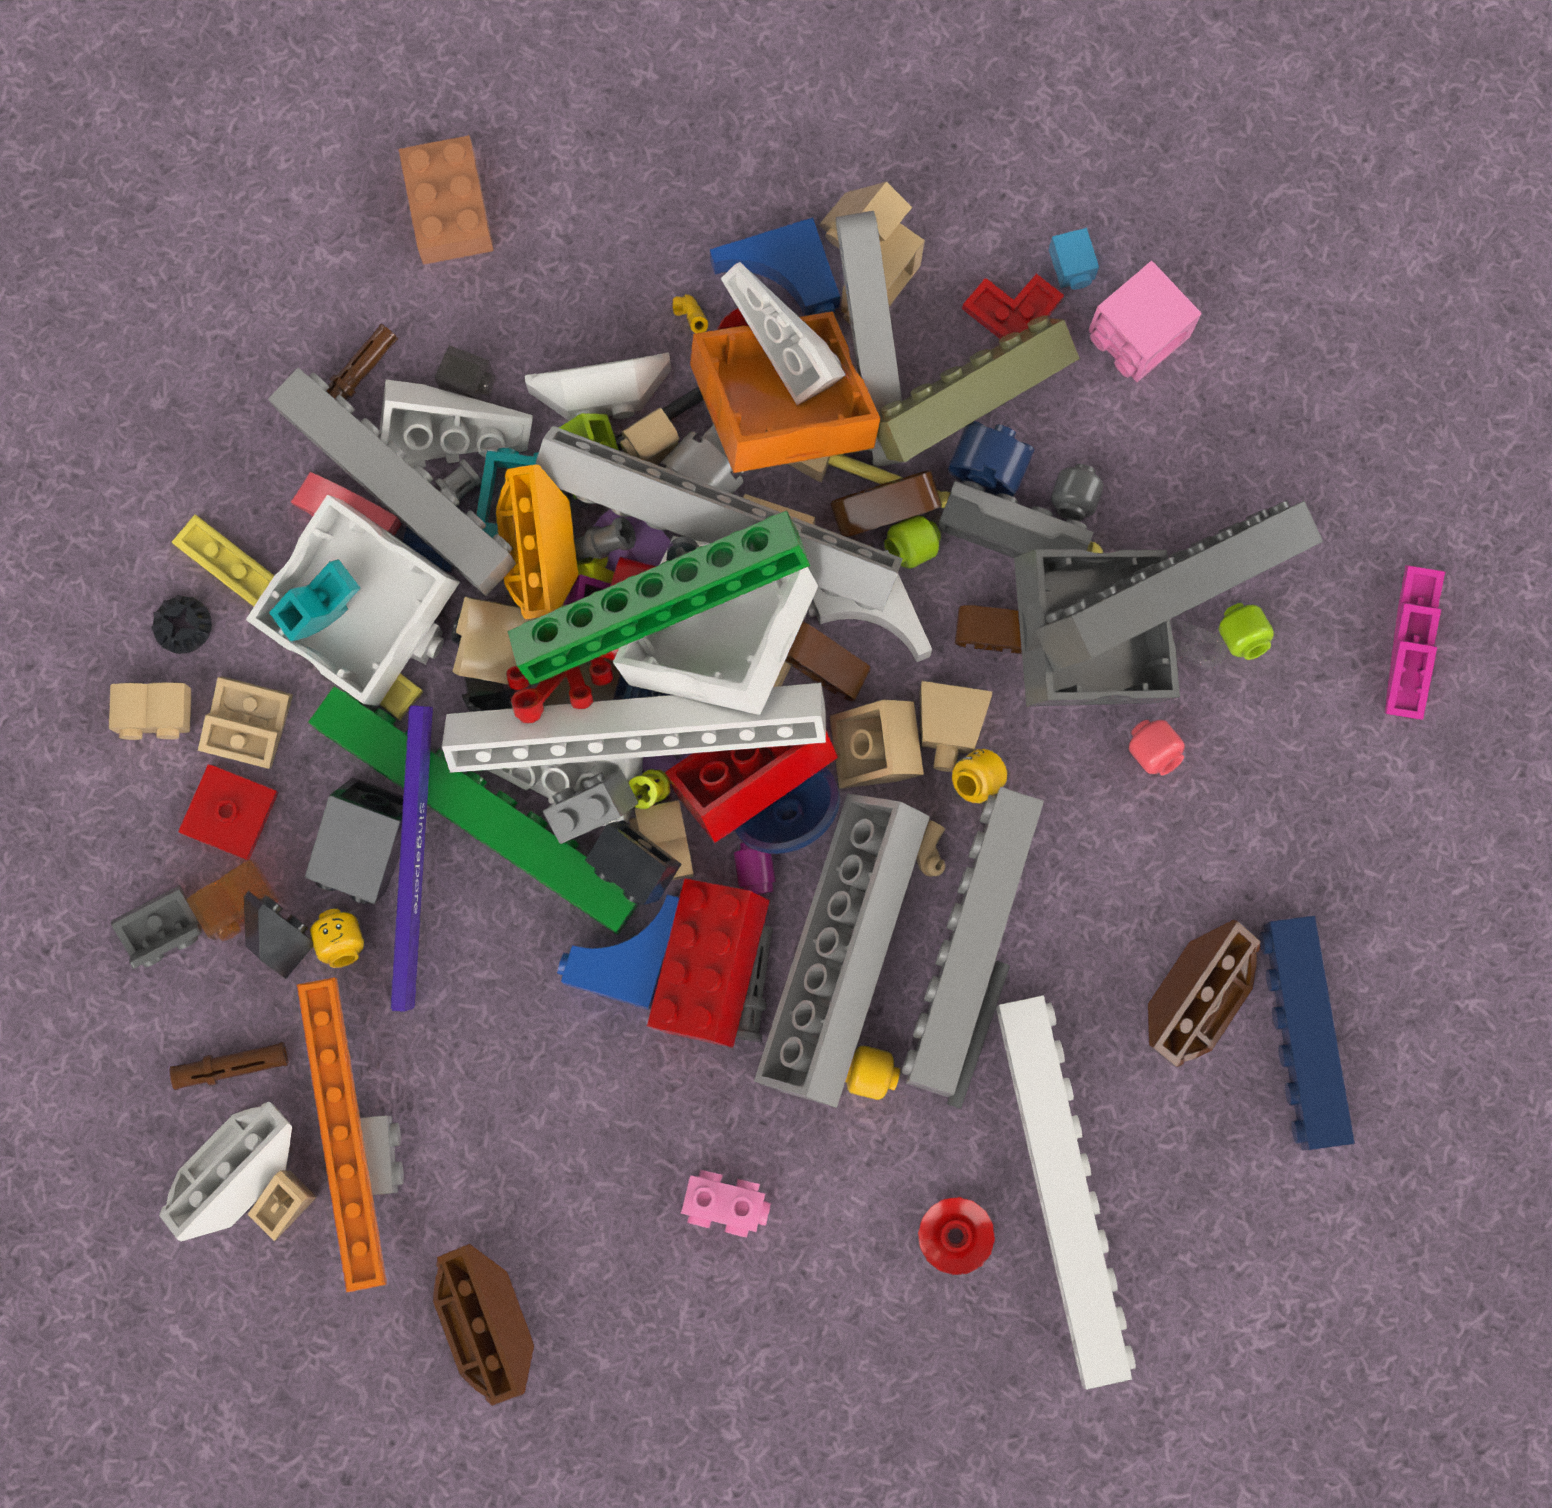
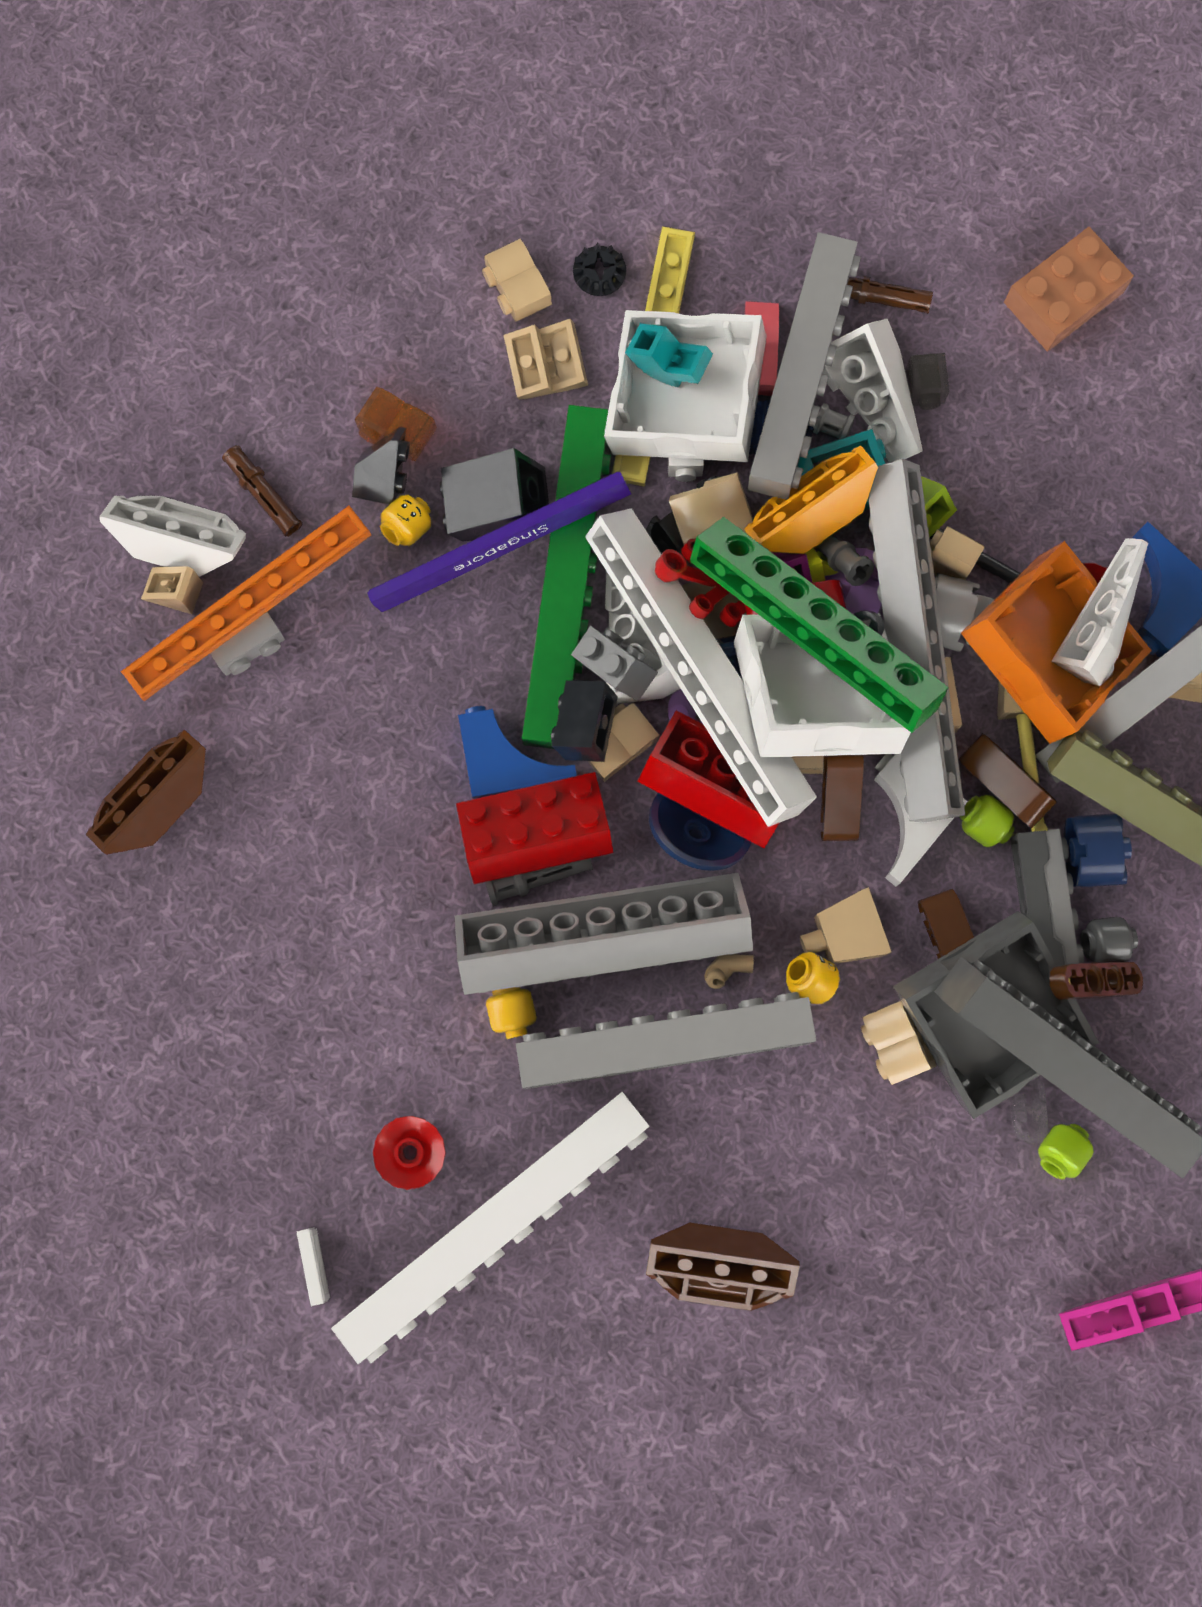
camera: 65 degrees right, 0 degrees up
(157, 928) = (343, 377): dark grey bracket -> none
(228, 812) = (465, 385): red plate -> none
(603, 388) = (978, 497): white wedge -> none
(657, 792) = (654, 710): neon yellow bush -> none
(695, 316) = (1088, 531): yellow arm -> none
(736, 1206) = (344, 954): bright pink brick -> none
(754, 870) = (632, 829): magenta brick -> none
(876, 744) = (795, 877): tan slope -> none
(980, 1031) = (590, 1088): dark grey bar -> none
(1018, 1380) = (313, 1266): none -> white tile
(1077, 729) = (897, 1042): none -> tan brick
(1110, 522) = (1096, 980): none -> reddish brown beam
(1156, 747) = (919, 1121): coral head -> none
(1307, 1033) = (734, 1379): dark blue brick -> none

